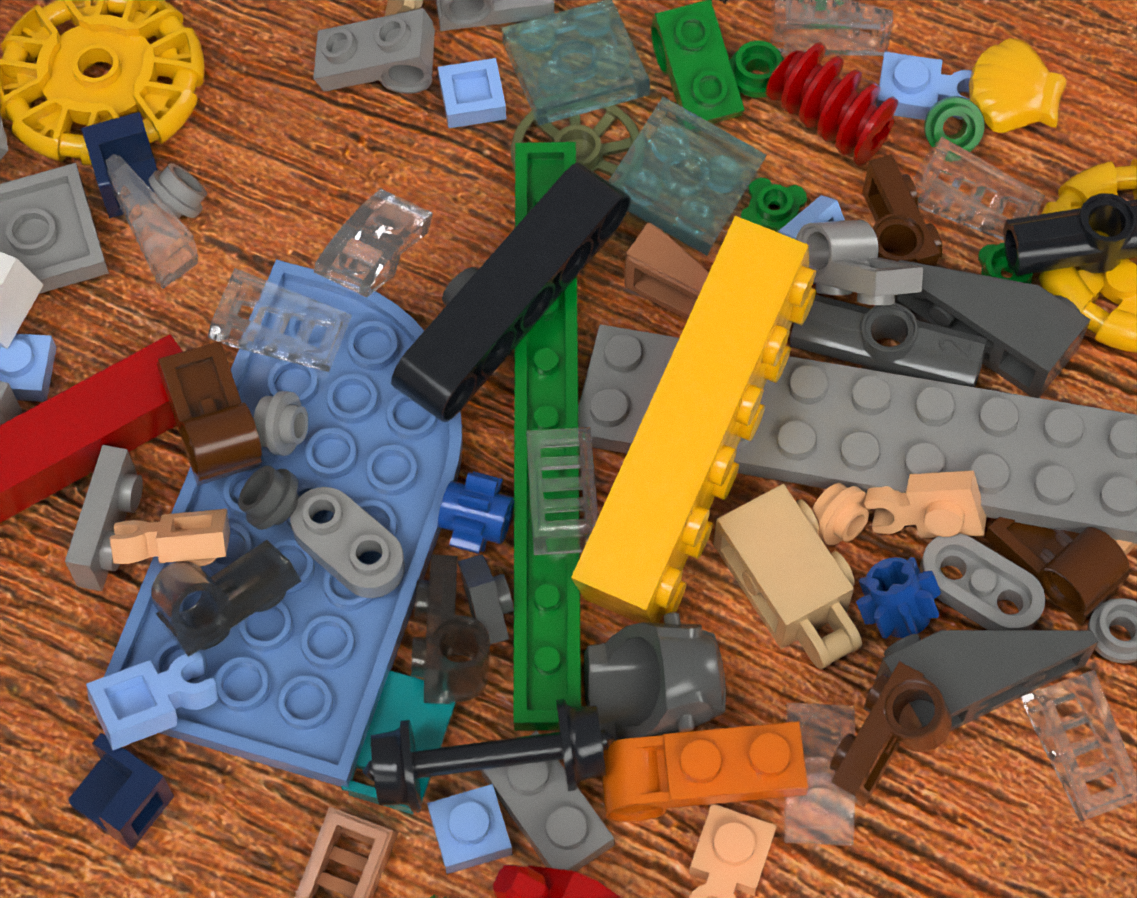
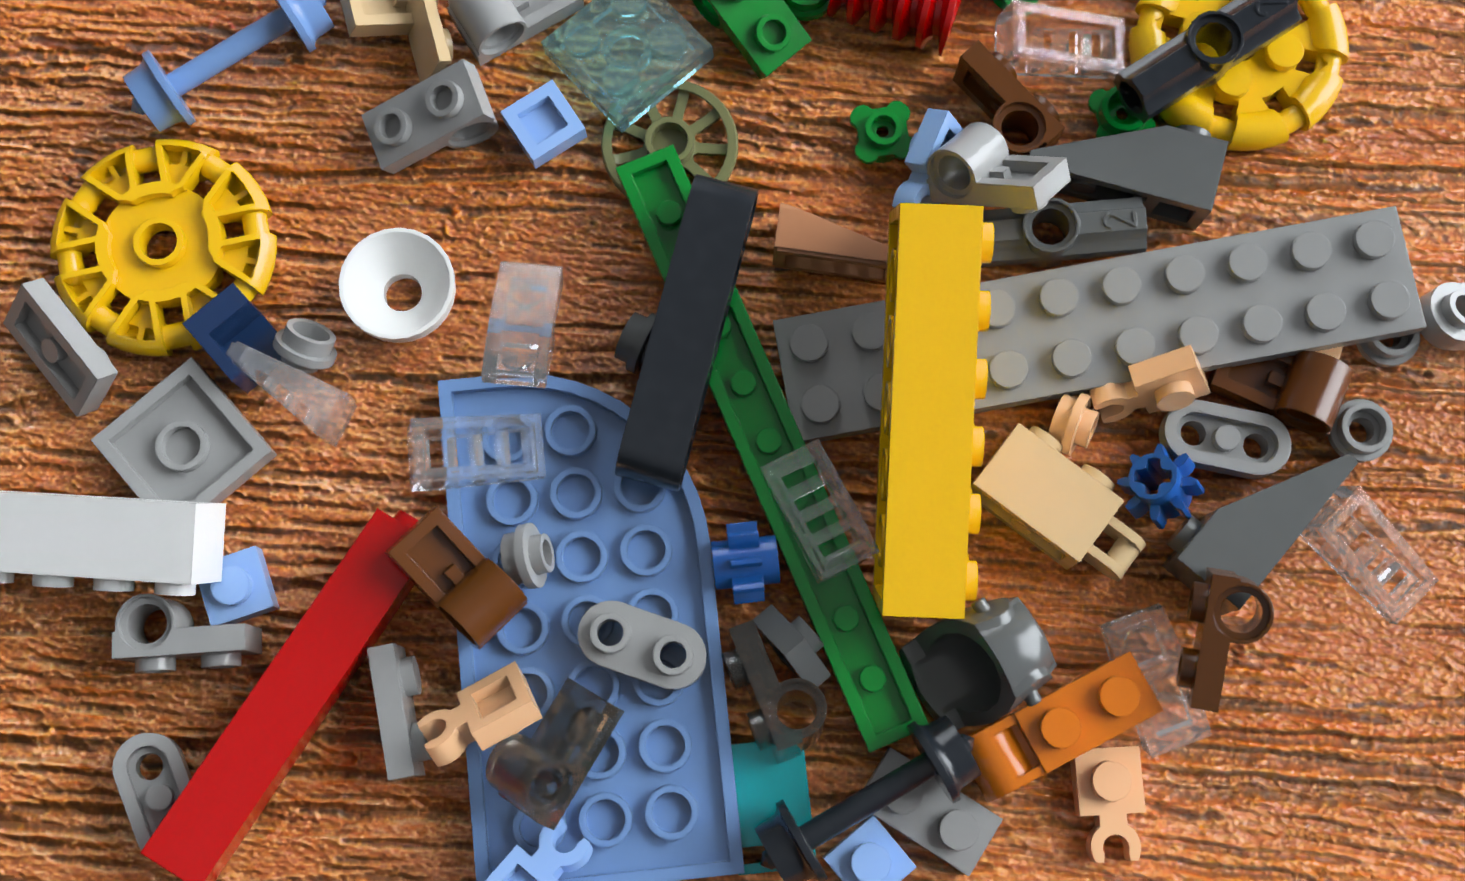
camera: 25 degrees left, 15 degrees up
(269, 497) = (551, 636): dark grey plate -> none
(277, 151) = (379, 263): none -> white piece
(686, 175) = (788, 133): clear light blue plate -> none

